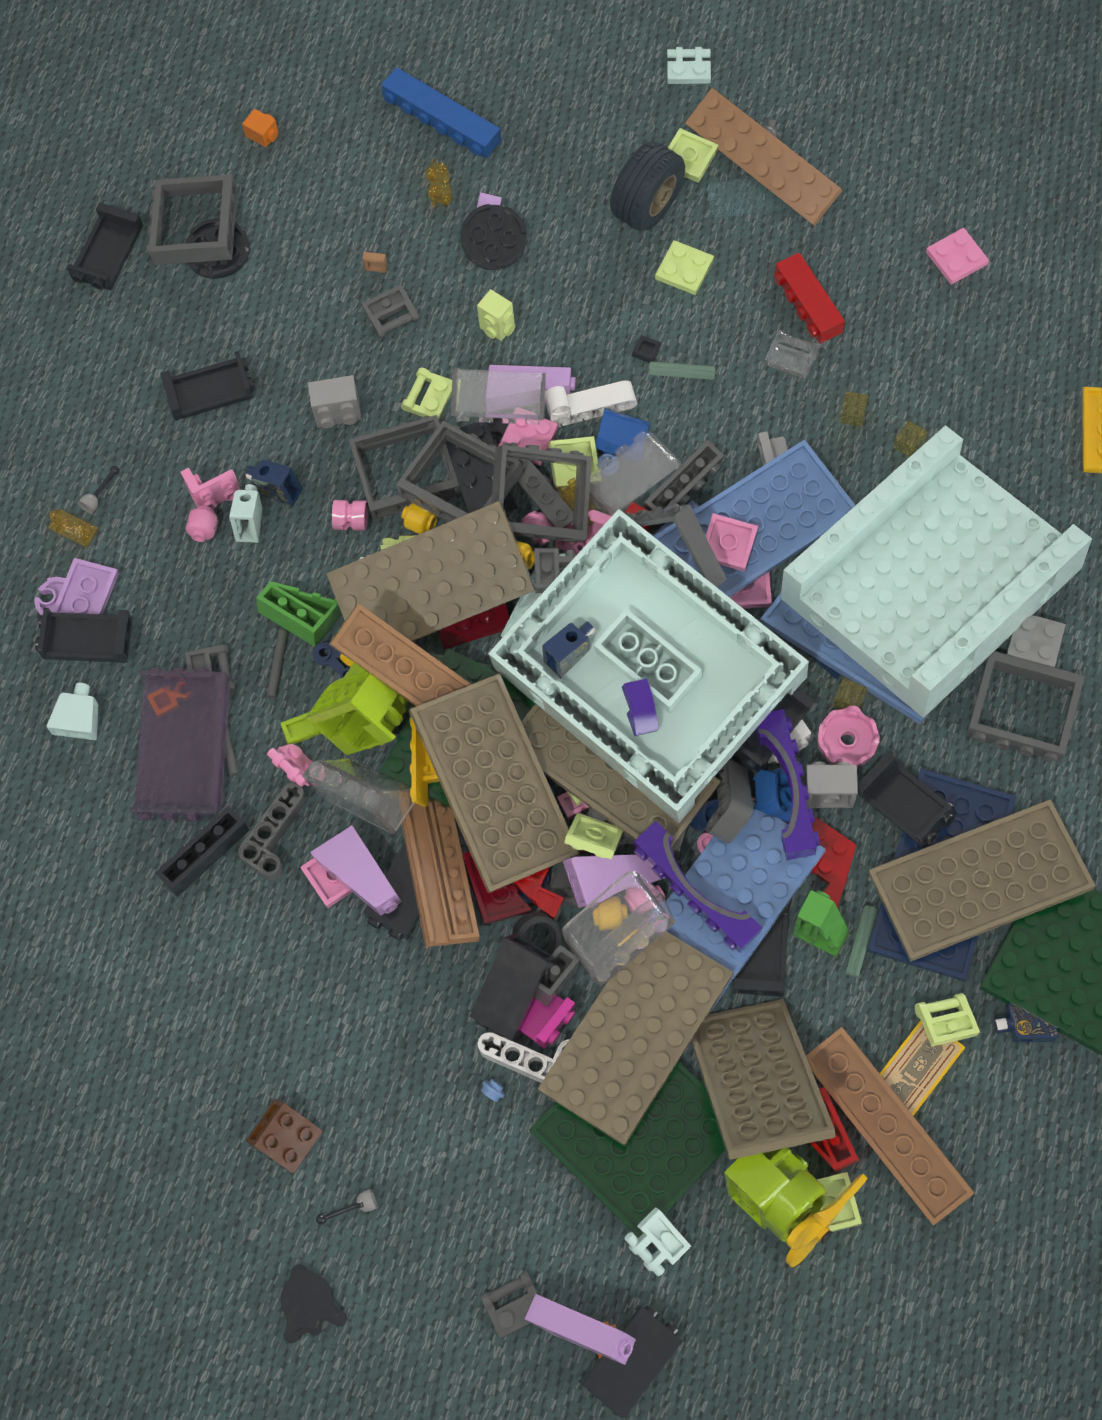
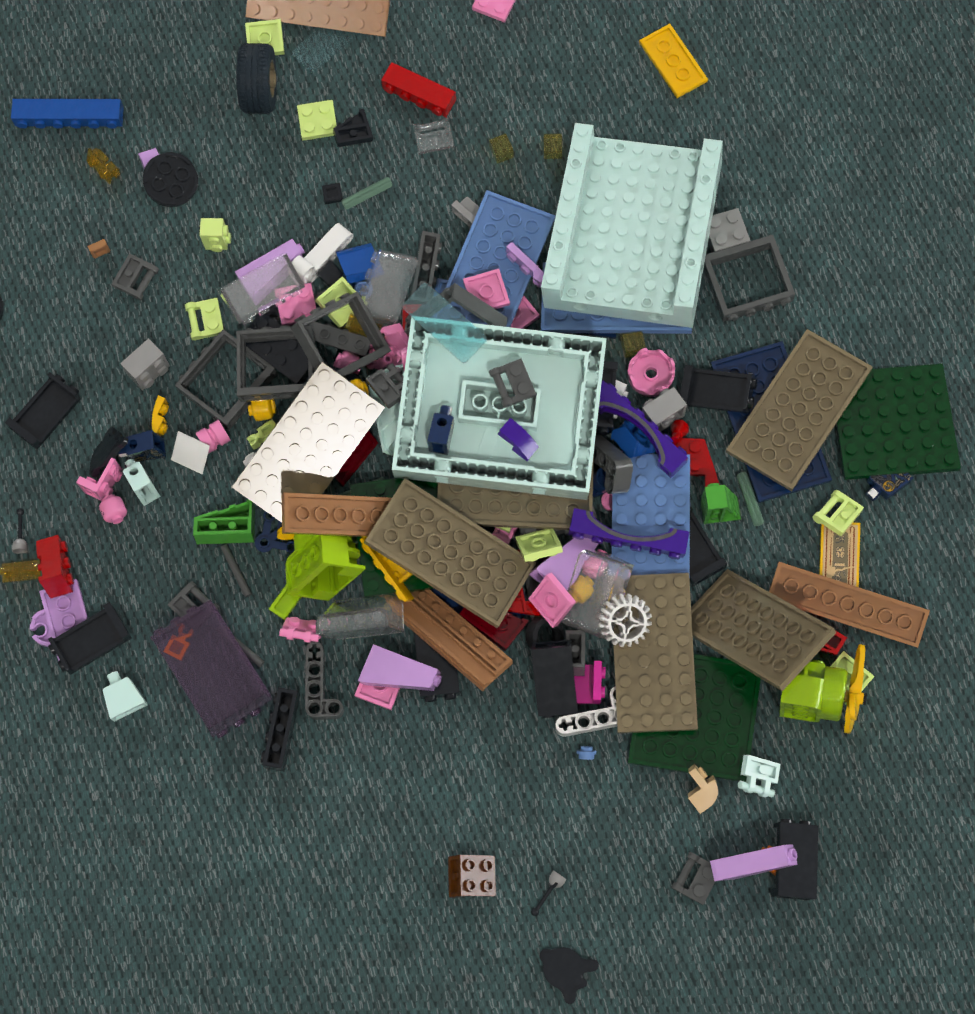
camera: 35 degrees left, 5 degrees up
(103, 542) = (54, 566): none -> red wedge
(237, 462) = (107, 449): none -> black tile
(316, 516) = (190, 452): none -> white sticker
(319, 455) = (159, 424): none -> yellow slope
(565, 902) = (552, 600): none -> bright pink plate
(585, 426) = (329, 274): none -> black tile
(589, 1218) = (706, 793): none -> tan brick
(611, 991) = (625, 604): none -> white gear
(647, 537) = (444, 322): none -> clear light blue piece
(683, 644) = (518, 380): none -> dark grey plate
(712, 299) = (353, 130): none -> black wing
(790, 541) = (526, 265): none -> lavender hinge
(834, 817) = (678, 430): none -> red cone

